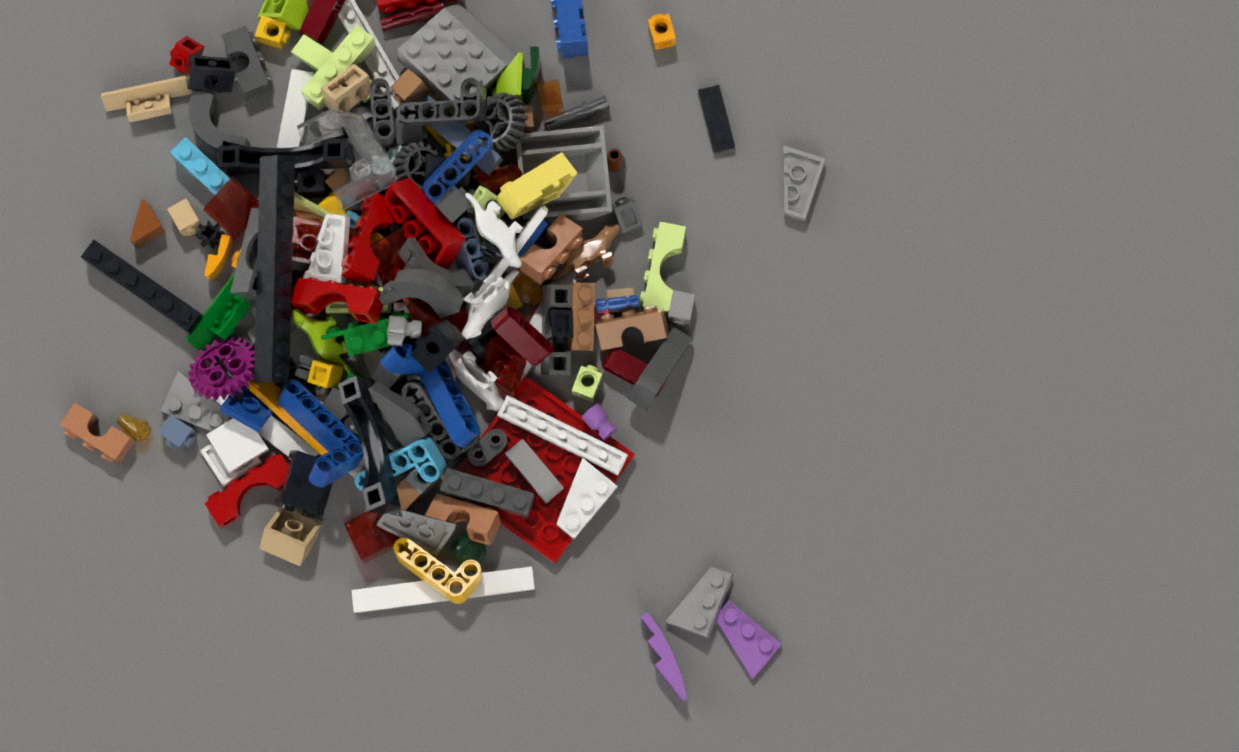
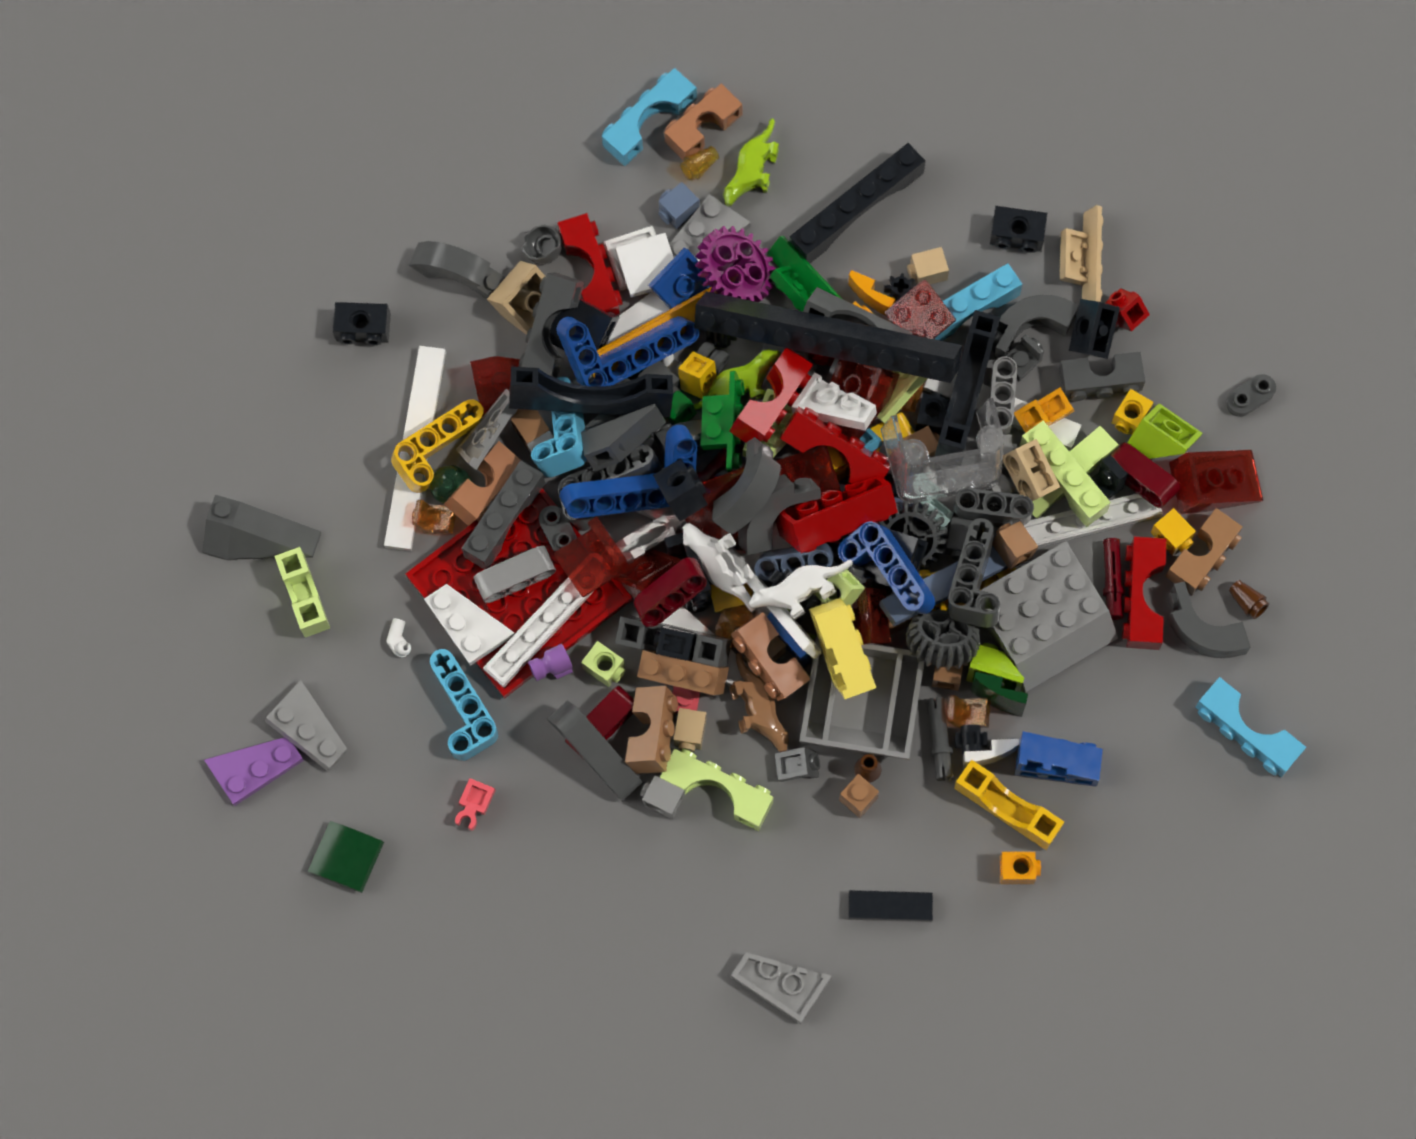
camera: 105 degrees right, 5 degrees down
(77, 466) = (670, 95): none -> medium azure arch
(127, 383) = (751, 166): none -> lime animal
(128, 145) = (1031, 222): none -> black brick
(146, 225) = (933, 225): dark orange slope -> none
(239, 534) = (542, 244): none -> dark grey hair
(245, 126) = (1026, 355): none -> dark grey bracket
(275, 127) = (1007, 386): none -> light grey beam
(277, 601) = (451, 262): none -> dark grey arch
(289, 98) = (1049, 408): none -> light orange slope
(291, 496) = (557, 295): none -> dark grey arch
(331, 35) = (1110, 477): none -> black bracket
(337, 656) = (350, 314): none -> black brick
(400, 328) = (714, 453): light grey piece -> none
(453, 203) = (846, 546): dark grey brick -> none
(501, 554) = (433, 518): none -> clear orange bracket
(507, 410) = (591, 559): none -> clear red bracket
(553, 702) = (244, 531): none -> dark grey wedge
(572, 89) = (970, 738): none -> black gear
(576, 69) = (998, 750): none -> white slope
(594, 640) = (302, 592): none -> yellowish green arch
(611, 555) = (396, 640): none -> white arm
(617, 48) = (1026, 818): none -> yellow arch
(617, 303) = (684, 718): blue axle -> none
(639, 160) = (859, 796): none -> medium nougat brick
(649, 487) = (460, 700): none -> medium azure beam
(667, 665) = (250, 669): medium lavender slope -> none
(723, 452) = (476, 800): none -> coral plate
(797, 540) = (346, 856): none -> dark green slope

